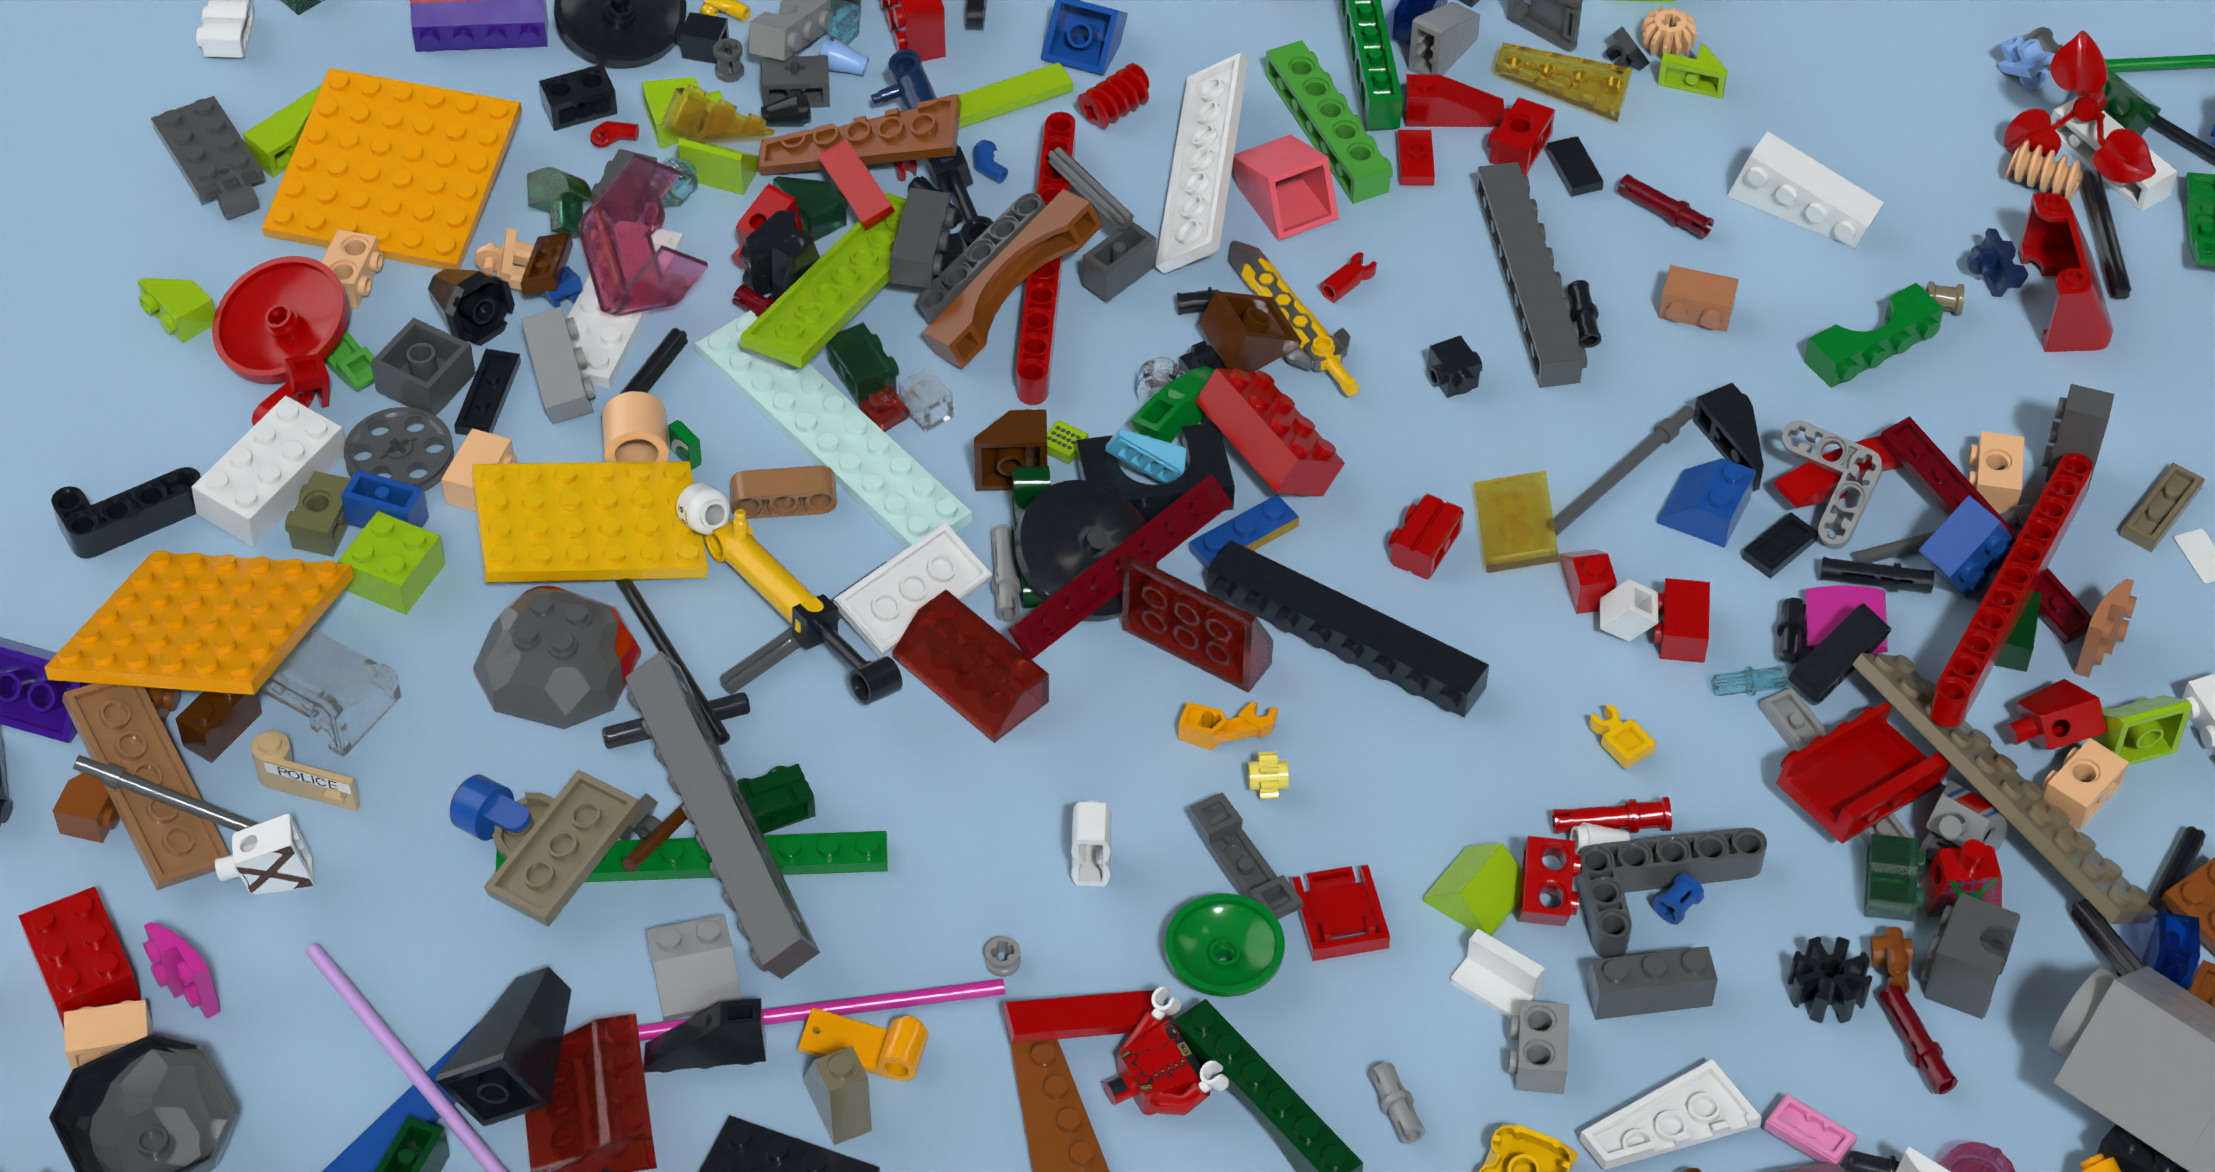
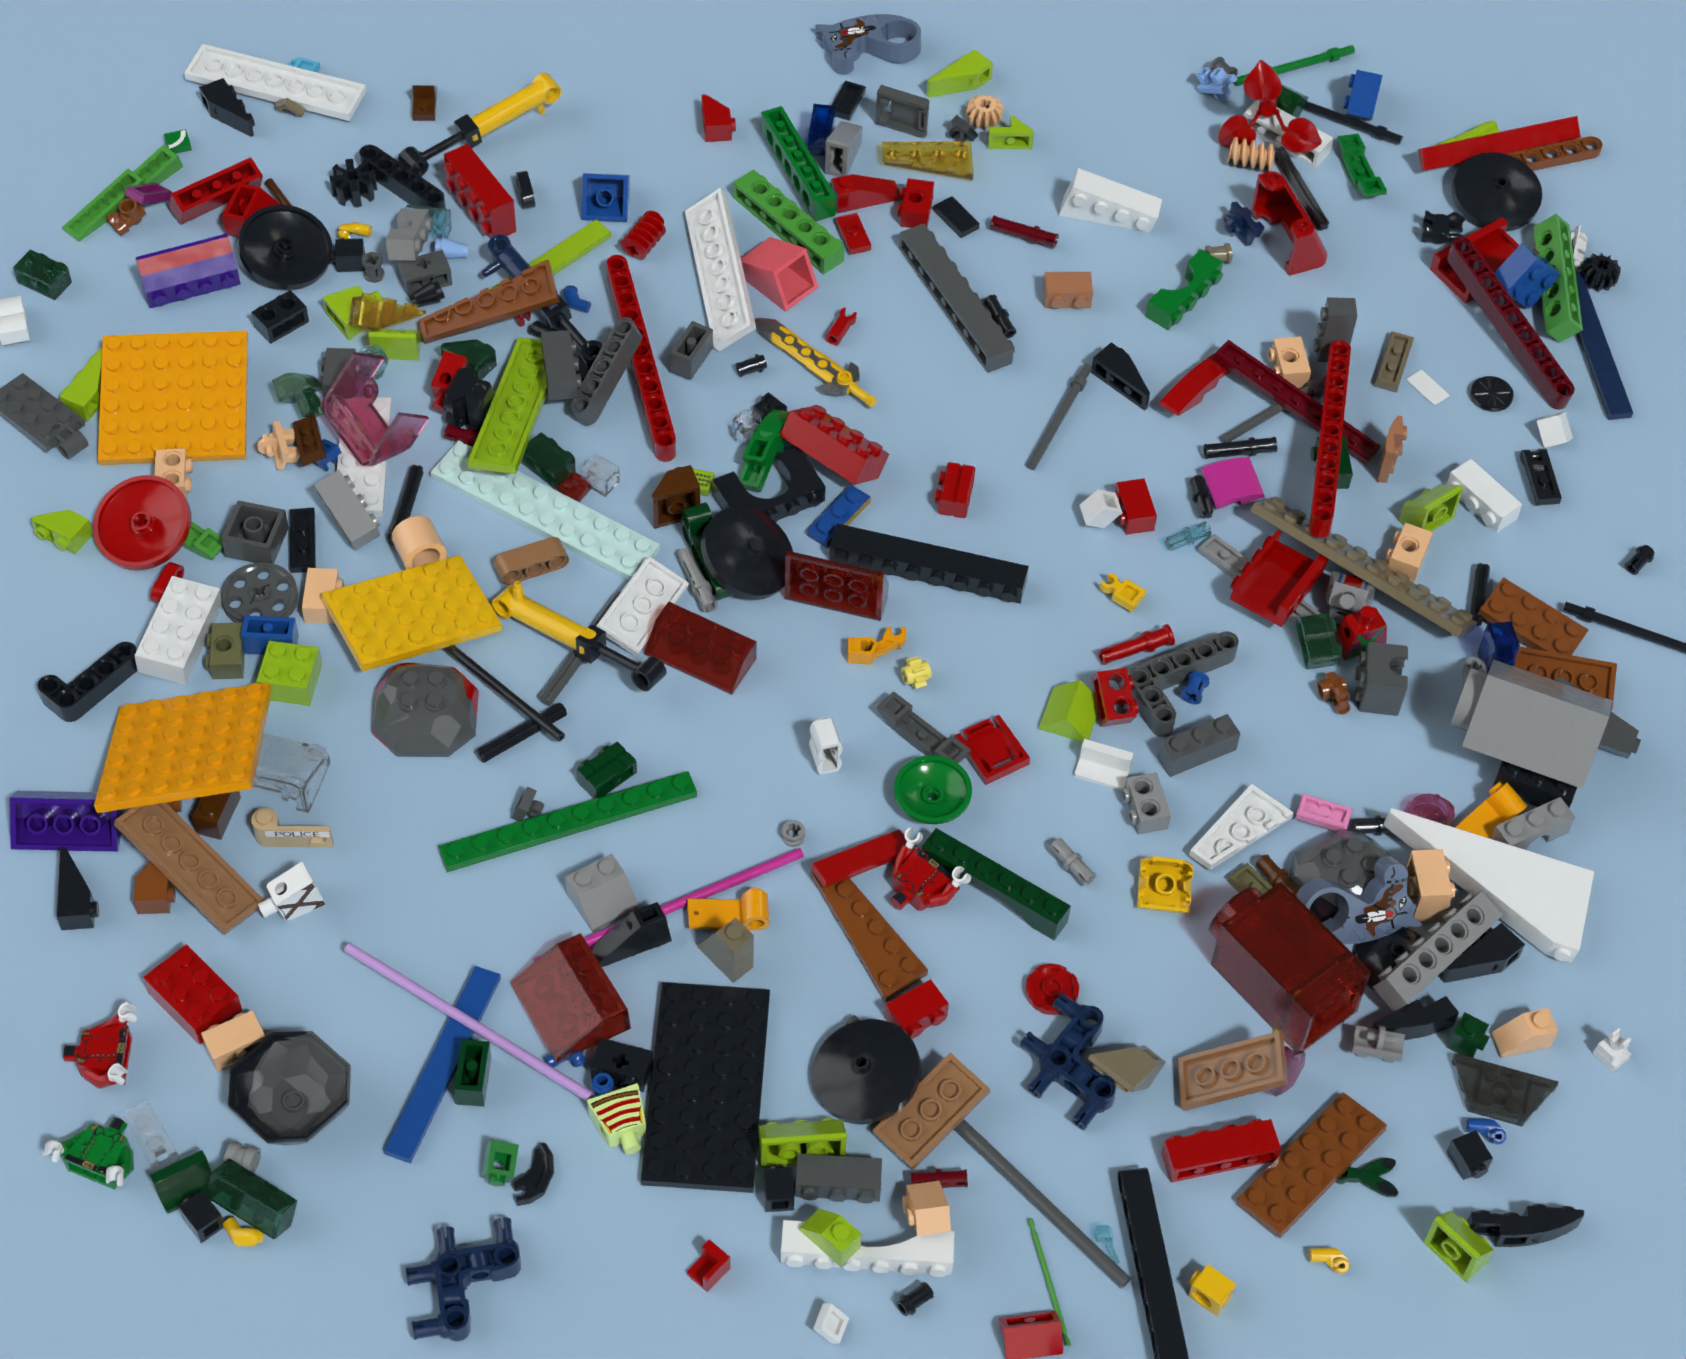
camera: 20 degrees left, 5 degrees up
(114, 776) = (172, 867): dark grey bar -> none
(180, 969) = (267, 982): dark pink slope -> none
(308, 373) = (179, 557): red panel -> none
(471, 303) = (268, 480): black cone -> none
(513, 1051) = (510, 978): black slope -> none
(544, 839) = (475, 835): dark tan plate -> none
(610, 132) = (311, 336): red arm -> none
(654, 839) = (549, 802): reddish brown bar -> none
(684, 443) = (453, 543): green tile -> none
(703, 508) = (488, 585): white head -> none
(721, 816) = (584, 788): dark grey brick -> none
(856, 184) = (499, 336): red tile -> none
(965, 323) = (650, 338): dark orange arch -> none
(1091, 189) = (658, 305): dark grey axle -> none
(1105, 576) = (772, 563): dark red plate -> none
(1151, 456) = (765, 479): medium azure slope -> none
(1247, 330) = (792, 378): reddish brown slope -> none
(1454, 366) = (931, 372): black brick -> none
(1516, 521) = (1008, 466): clear yellow tile -> none
(1588, 578) = (1066, 492): red slope -> none
(1592, 834) = (1130, 660): white cone -> none
(1709, 500) = (1121, 423): blue slope -> none
(1780, 545) = (1174, 442): black tile -> none
(1829, 979) = (1302, 715): black gear -> none
(1833, 658) = (1238, 505): black beam -> none
(1845, 467) = (1201, 383): light grey beam -> none
(1924, 1051) = (1373, 745): dark red pin -> none
(1968, 547) = (1294, 417): blue brick -> none
(2057, 716) = (1381, 513): red torso -> none
(2105, 937) = (1458, 649): black axle -> none

